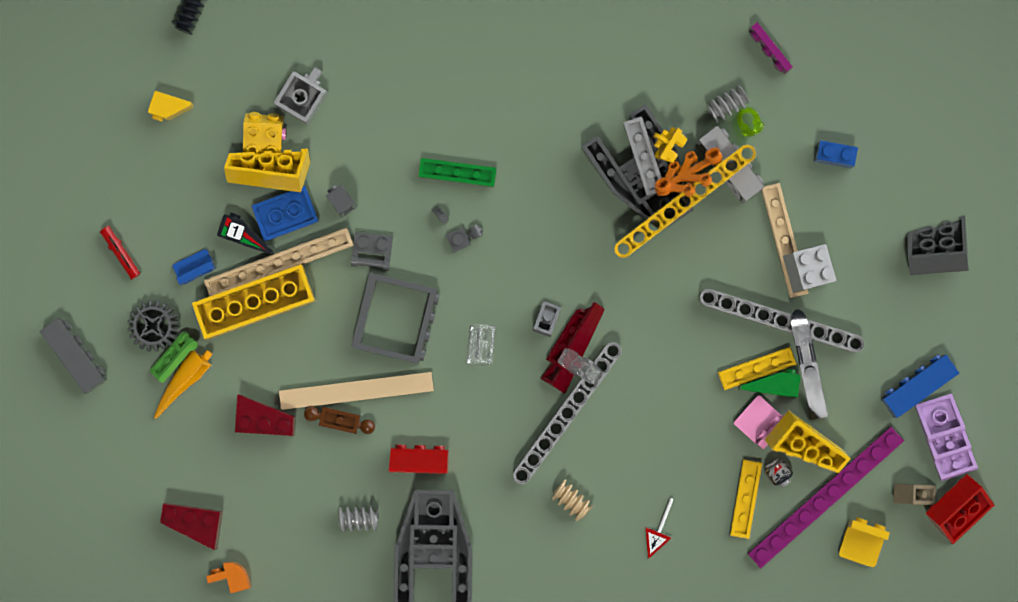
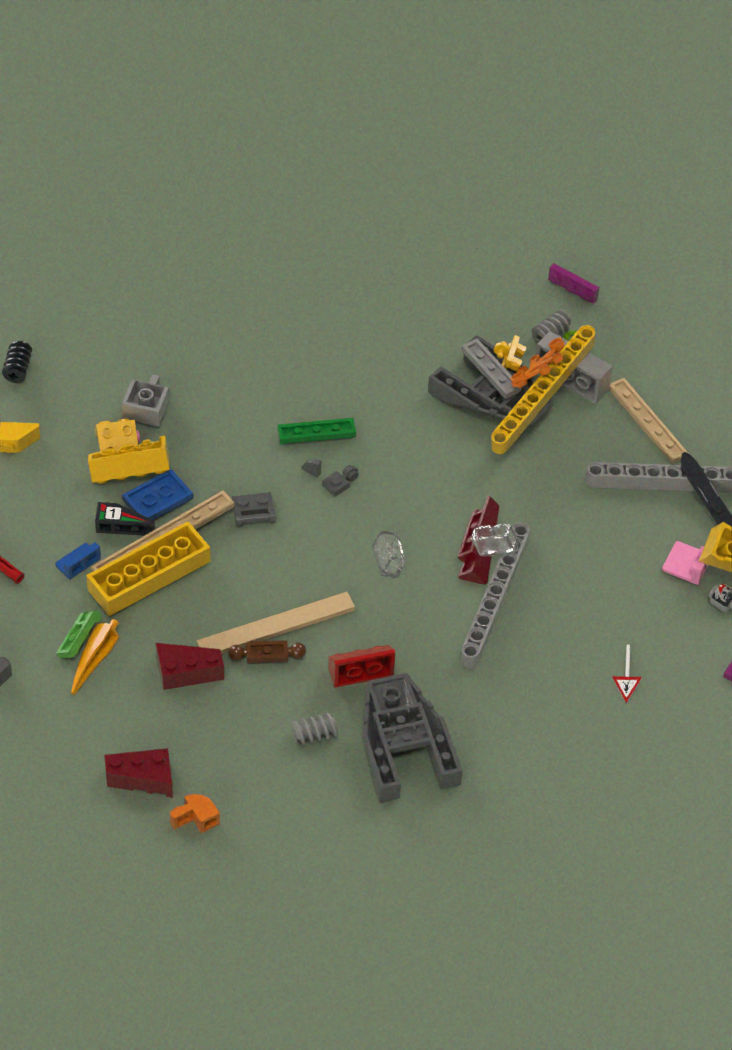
camera: 20 degrees left, 35 degrees down
(147, 332) = (51, 618): dark grey gear -> none
(340, 200) = (211, 468): dark grey brick -> none
(364, 312) = (296, 584): dark grey window -> none
(547, 319) = (446, 526): slope -> none
(571, 501) = (529, 665): tan piece -> none
(745, 499) = (701, 630): yellow tile -> none
(756, 368) = (665, 522): yellow tile -> none
(780, 384) = (687, 528): green slope -> none
(809, 268) = (680, 428): light grey brick -> none
(836, 154) = (666, 344): blue brick -> none

